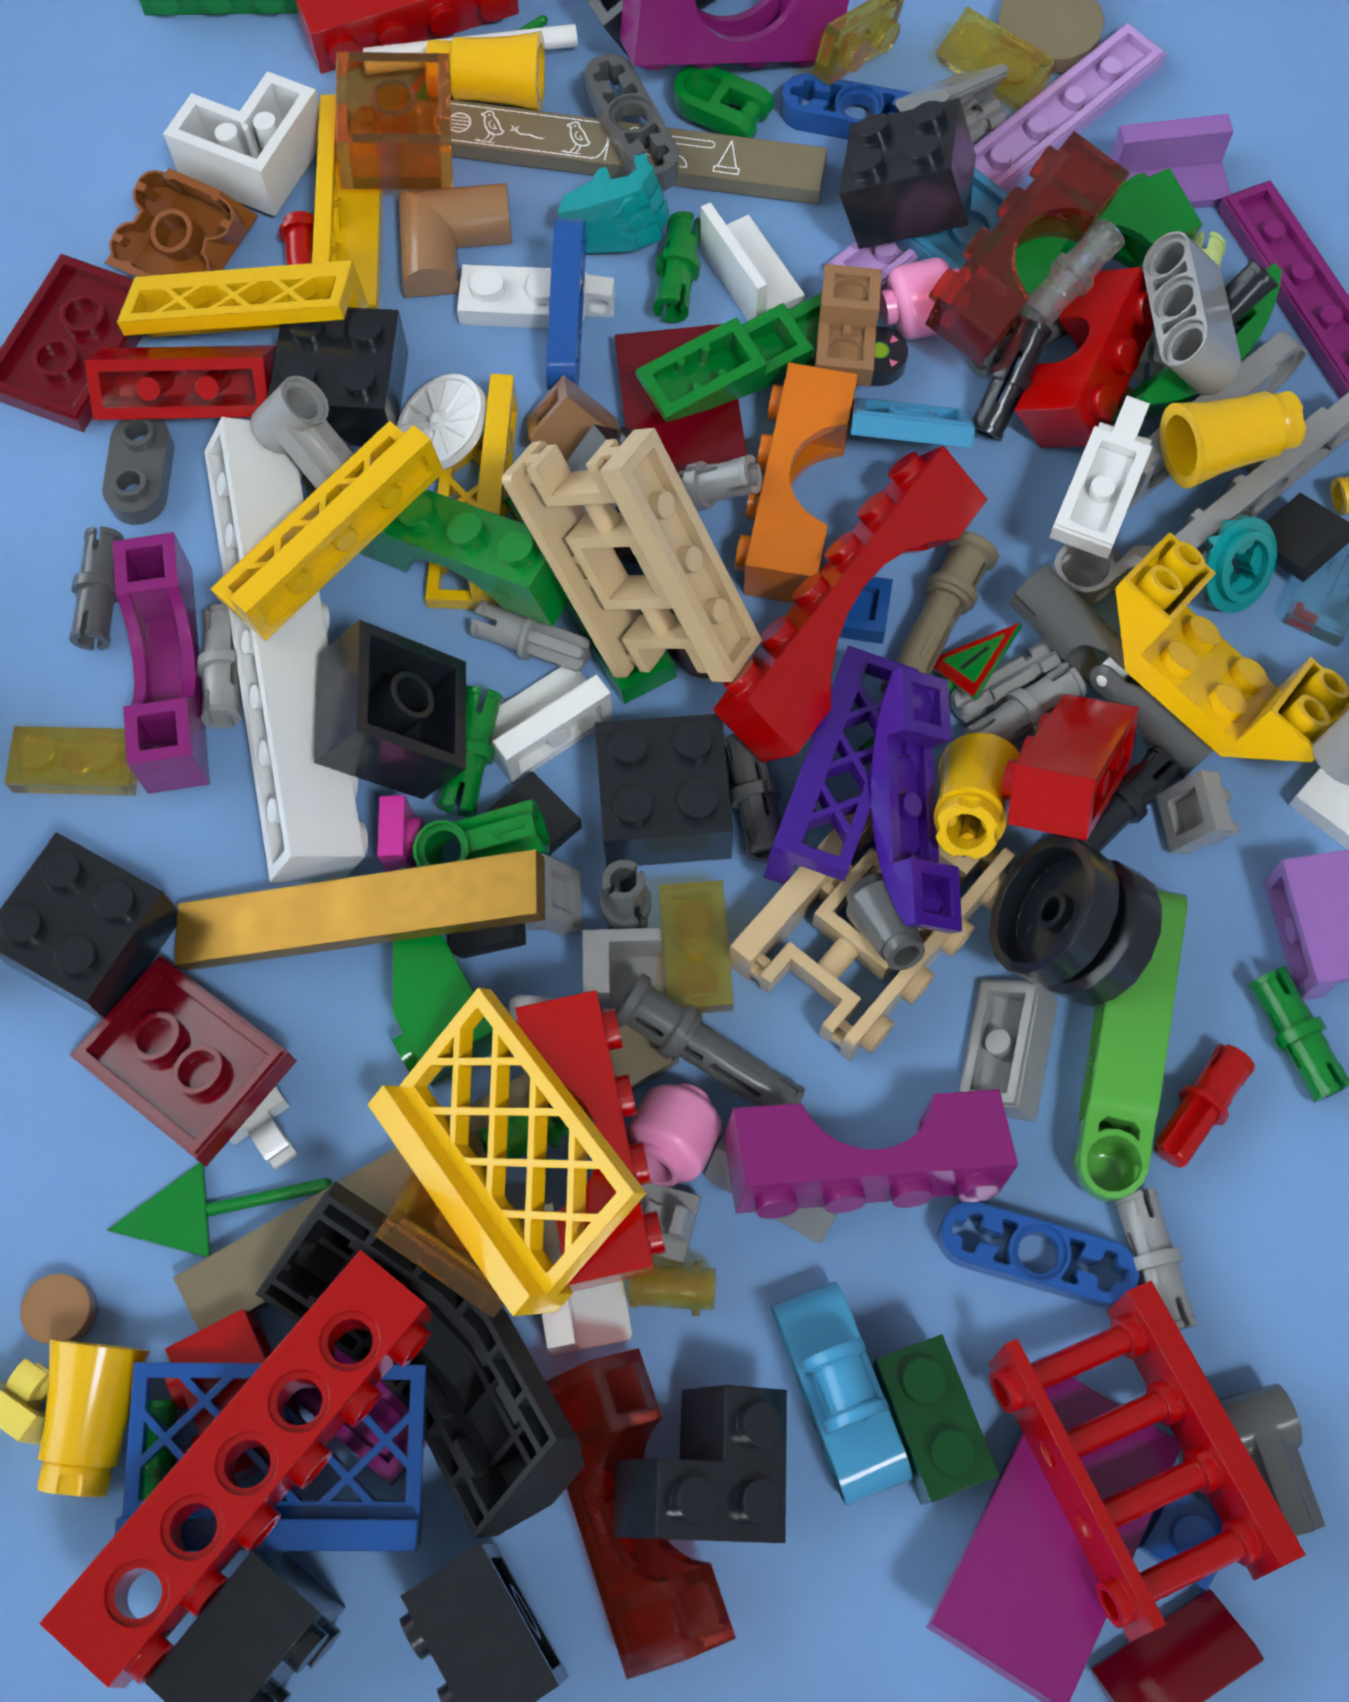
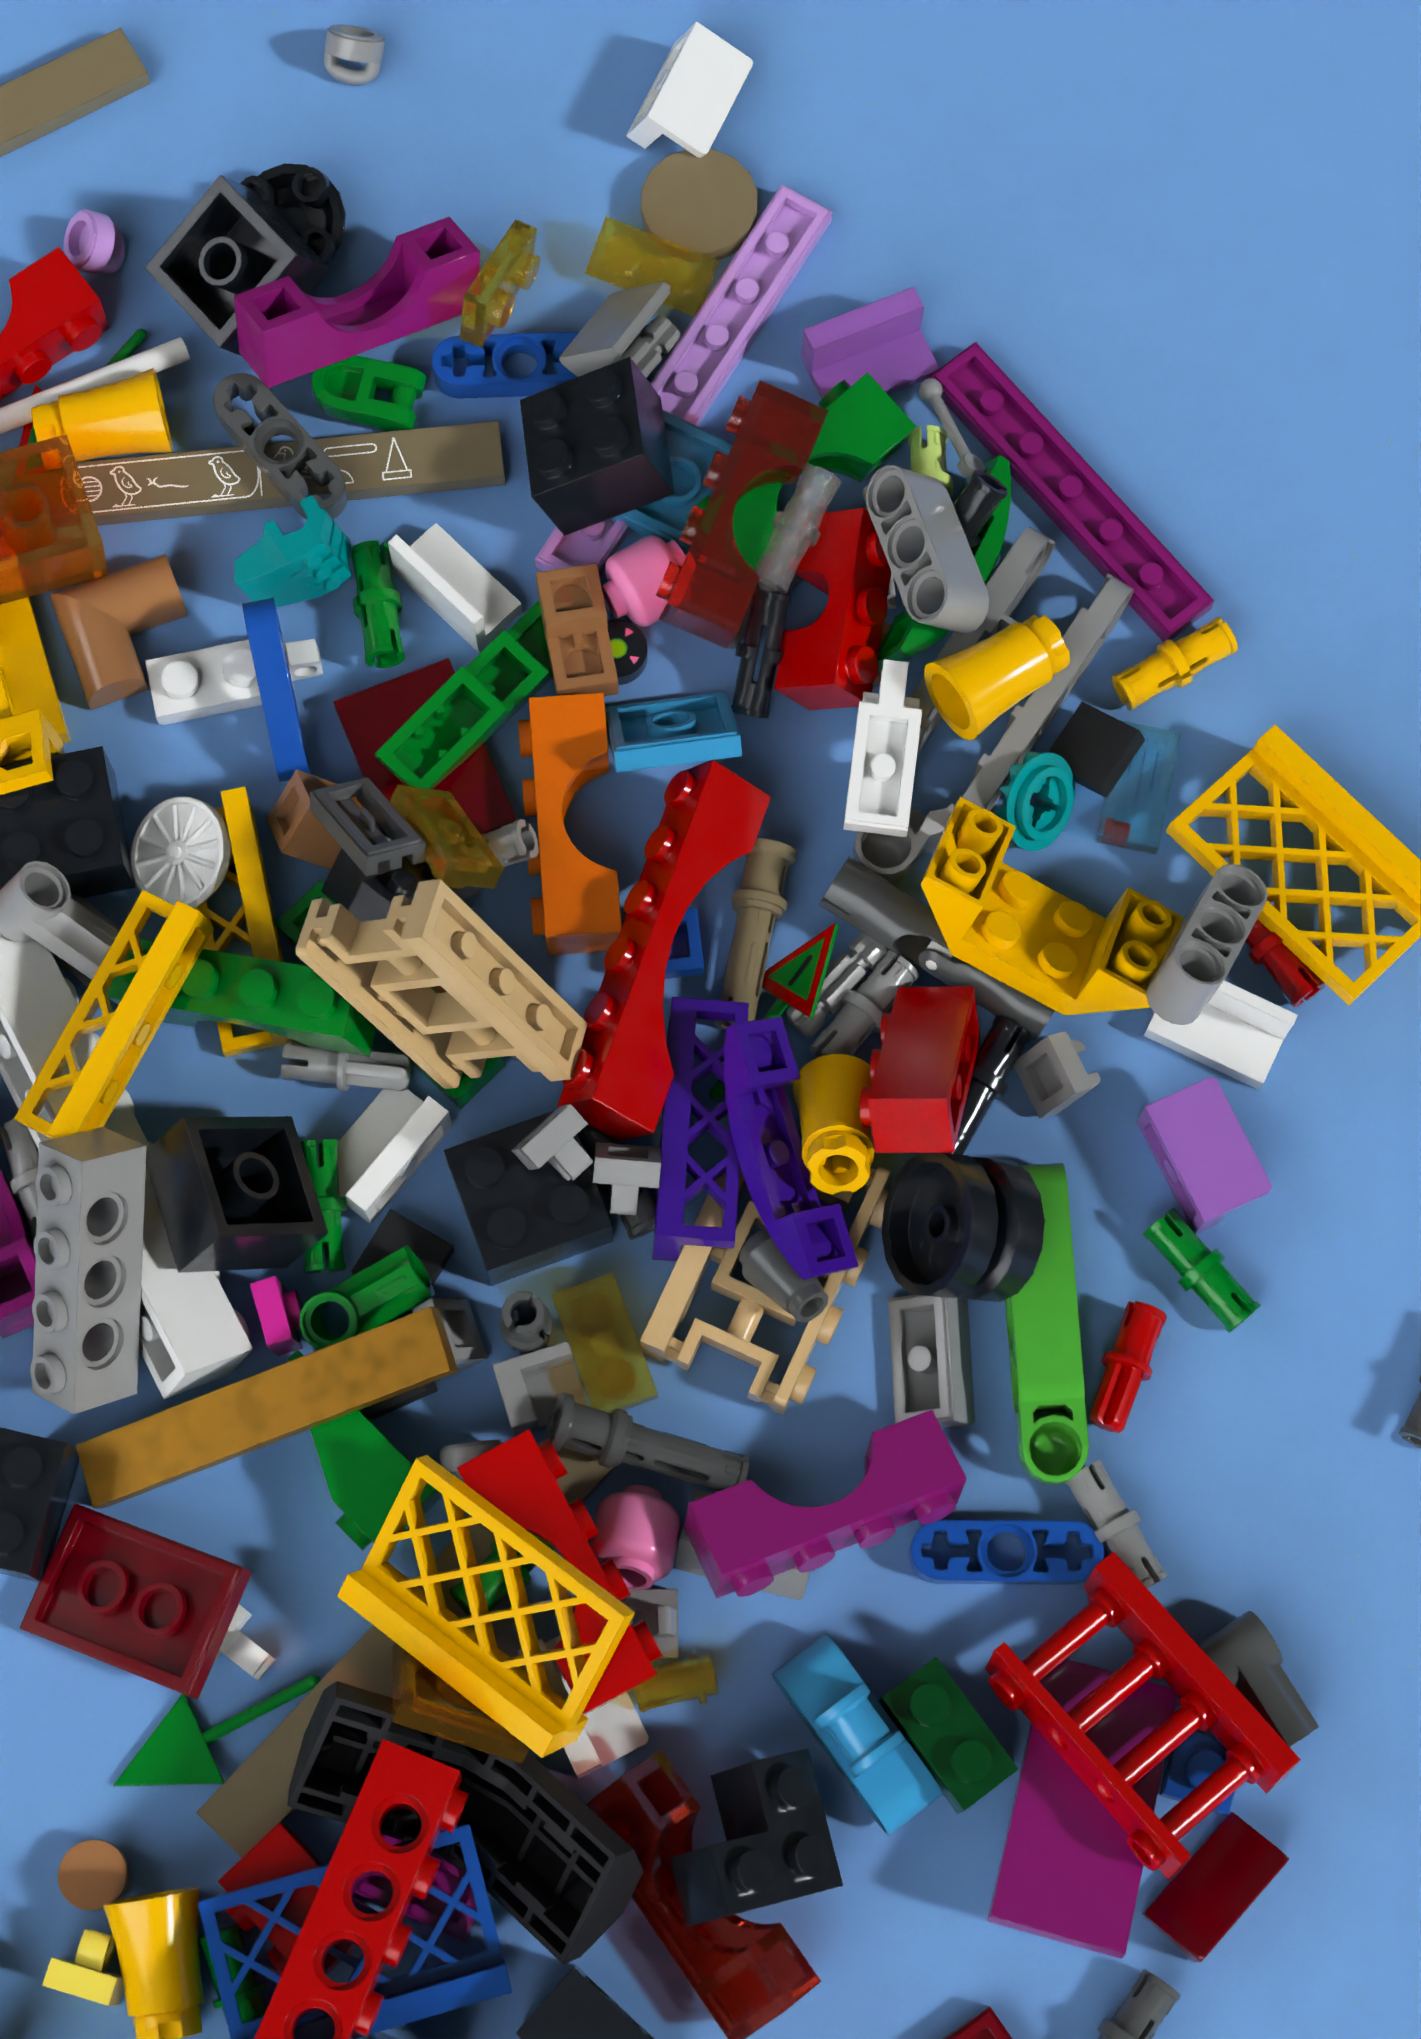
camera: 20 degrees left, 5 degrees up
(243, 766) = (88, 1269): none -> light grey brick
(598, 420) = (356, 829): none -> dark grey tile
(684, 448) = (452, 842): none -> clear yellow plate
(700, 736) = (555, 1143): none -> light grey tile
(760, 786) = (626, 1170): none -> light grey tile
(1220, 209) = (931, 391): none -> light grey hinge

